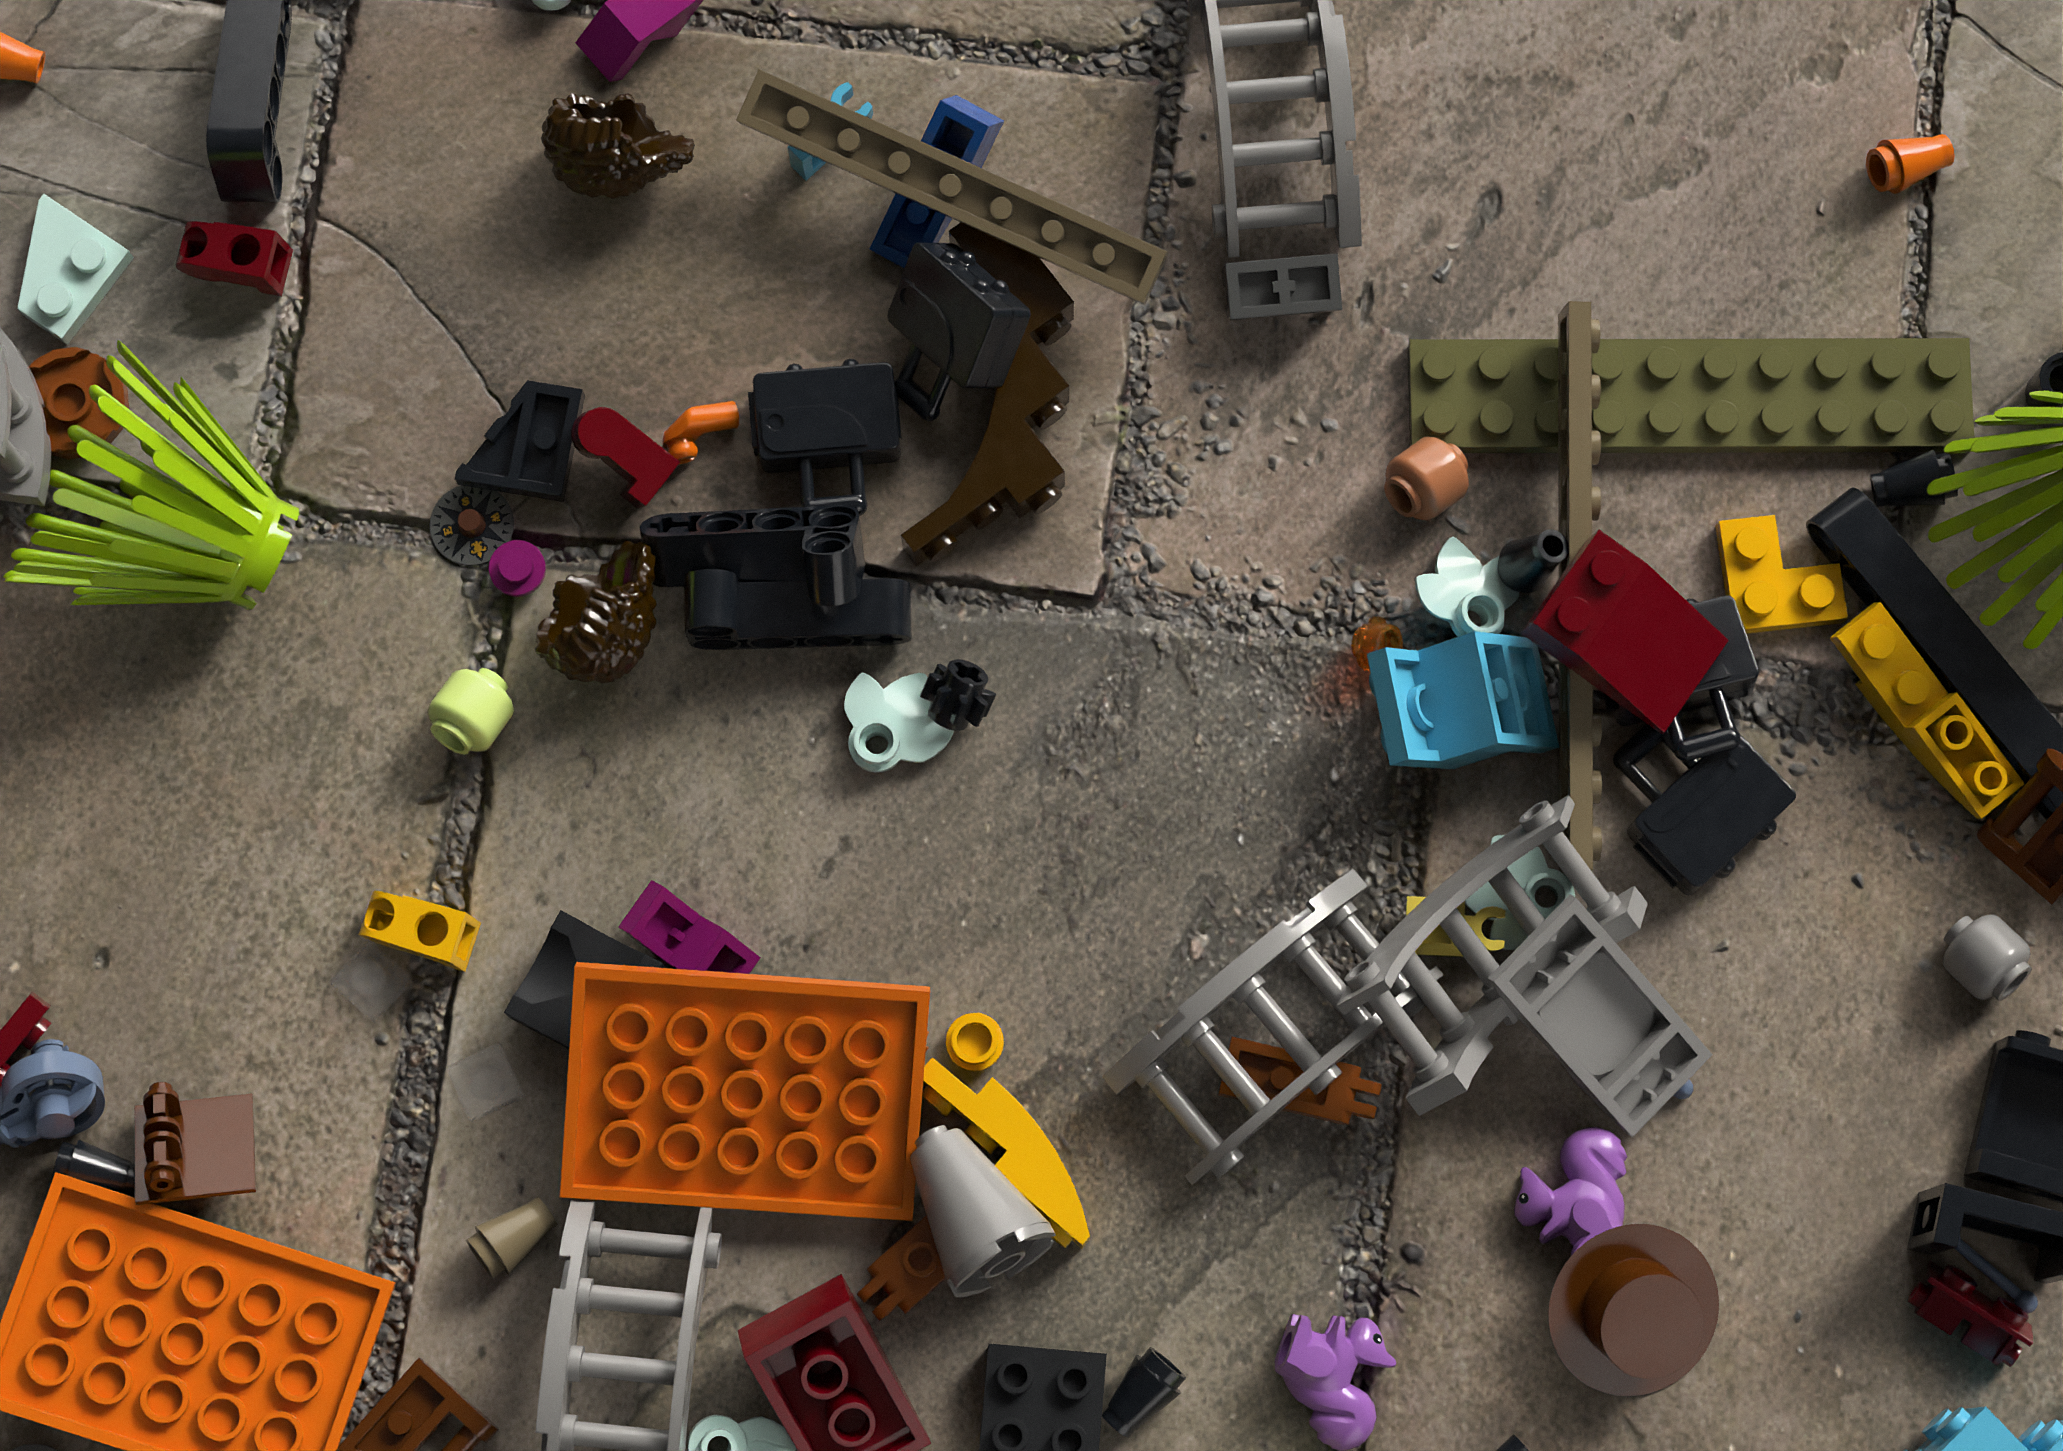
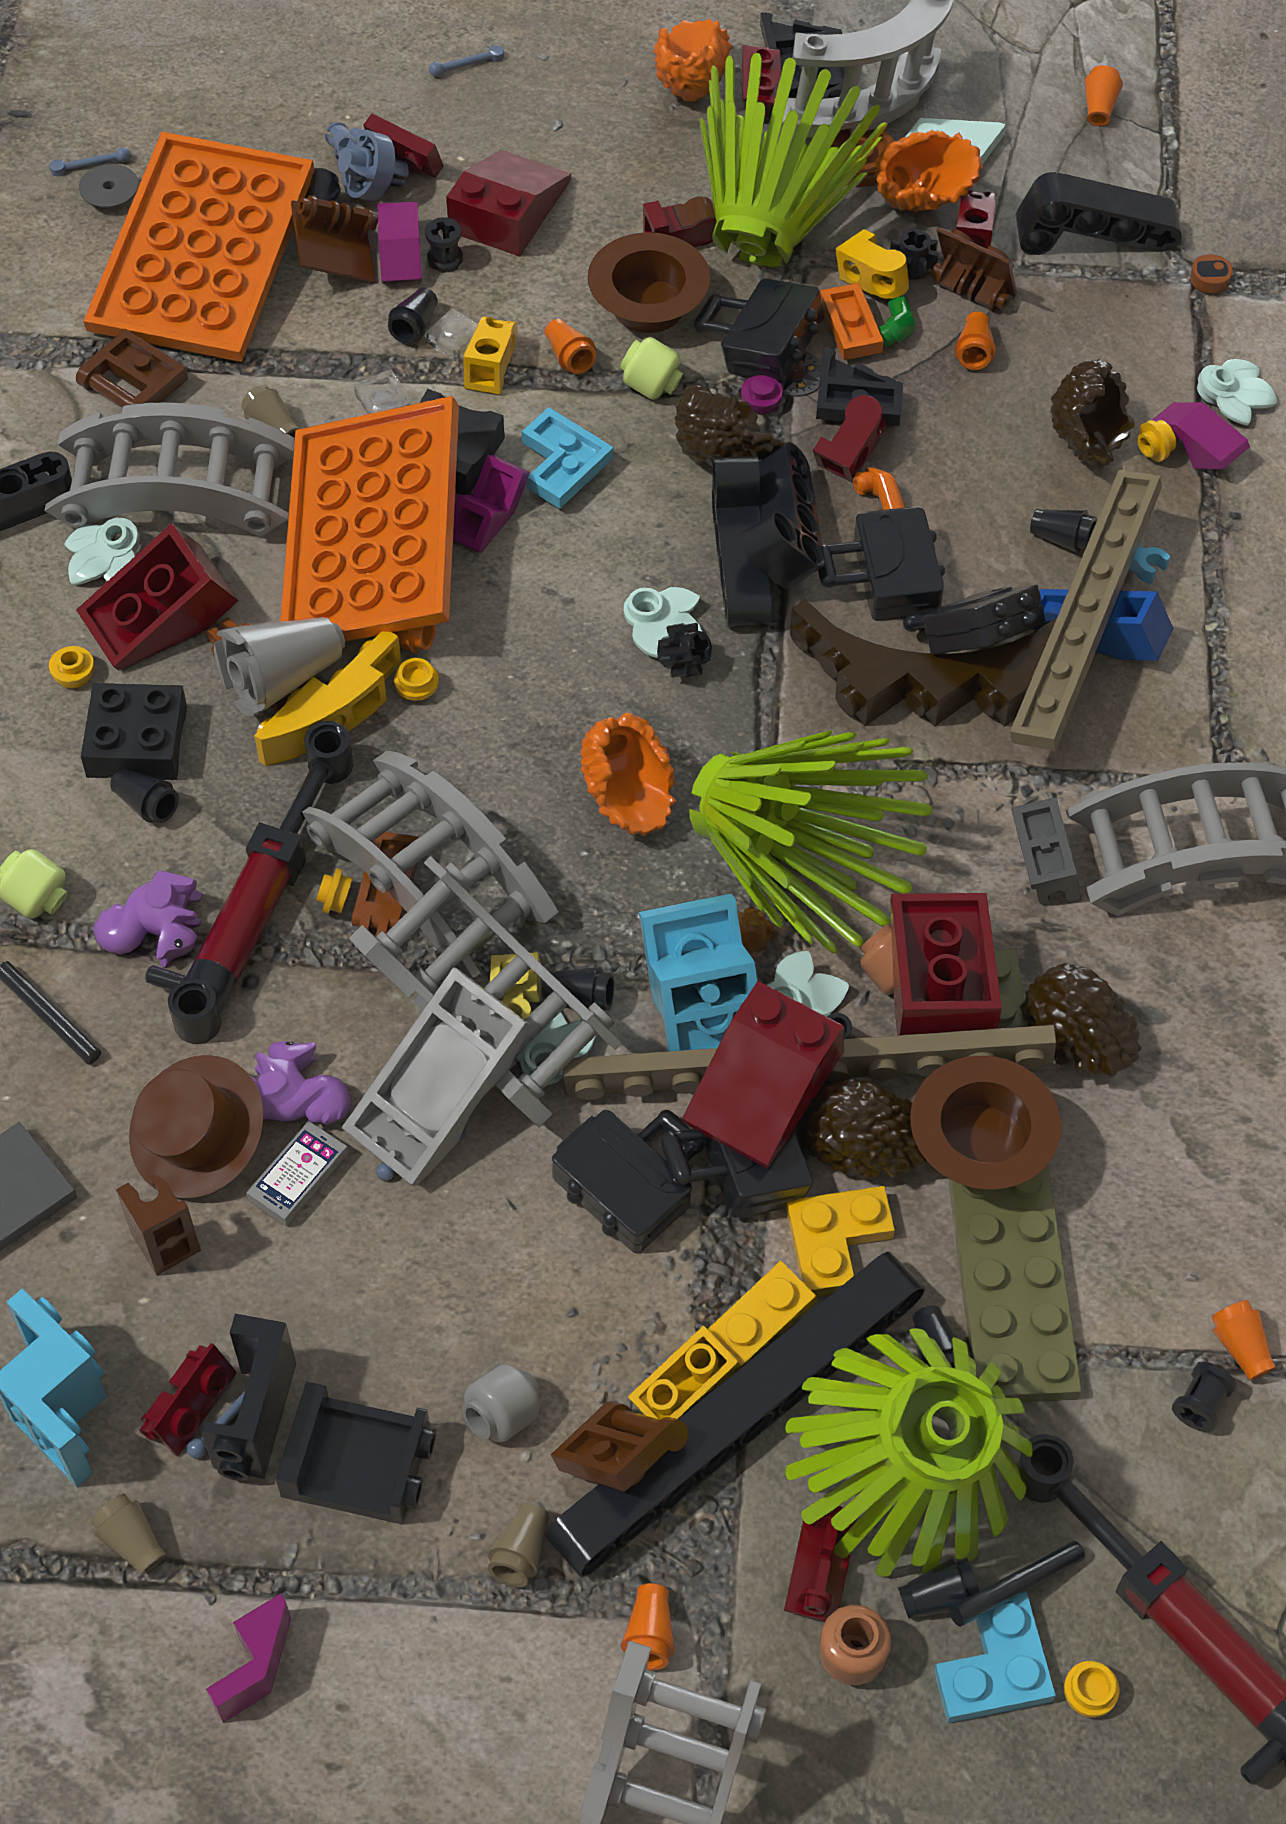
camera: 85 degrees right, 20 degrees down
(116, 896) = (505, 200): none -> dark red slope
(158, 301) = (927, 170): none -> orange piece
(194, 980) = (438, 247): none -> black bush
(194, 1053) = (399, 242): none -> magenta slope
(199, 657) = (688, 221): none -> dark red leg
(272, 343) = (918, 250): none -> black gear
(314, 400) = (874, 268): none -> yellow leg
(319, 701) = (648, 280): none -> reddish brown hose
(338, 1036) = (411, 317): none -> black cone
(344, 239) = (968, 261): none -> reddish brown hinge
(400, 439) = (851, 321): none -> orange plate
(408, 374) = (900, 324): none -> green arm
(413, 544) = (769, 330): none -> black piece
(415, 820) = (572, 349): none -> orange cone
(453, 279) = (975, 344): none -> orange cone
(612, 821) = (571, 456): none -> medium azure plate
(645, 72) = (1156, 440): none -> yellow plate
(781, 204) = (1064, 527): none -> black cone
(1163, 772) = (628, 773): none -> orange piece
(1249, 609) = (757, 810): none -> lime plant
(1303, 1146) = (334, 891): none -> yellow plate
(1312, 1248) = (272, 864): none -> black piece
(1450, 845) = (586, 985): none -> black cone
(1471, 417) = (943, 963): none -> dark red slope
(1520, 277) = (1086, 1019): none -> dark brown piece
(1665, 519) = (860, 1130): none -> dark brown piece
(1685, 392) = (985, 1122): none -> reddish brown hose
(1685, 1191) = (297, 1173): none -> tile
(1788, 1342) = (159, 1226): none -> reddish brown hinge
(1976, 212) = (1204, 1396): none -> black bush

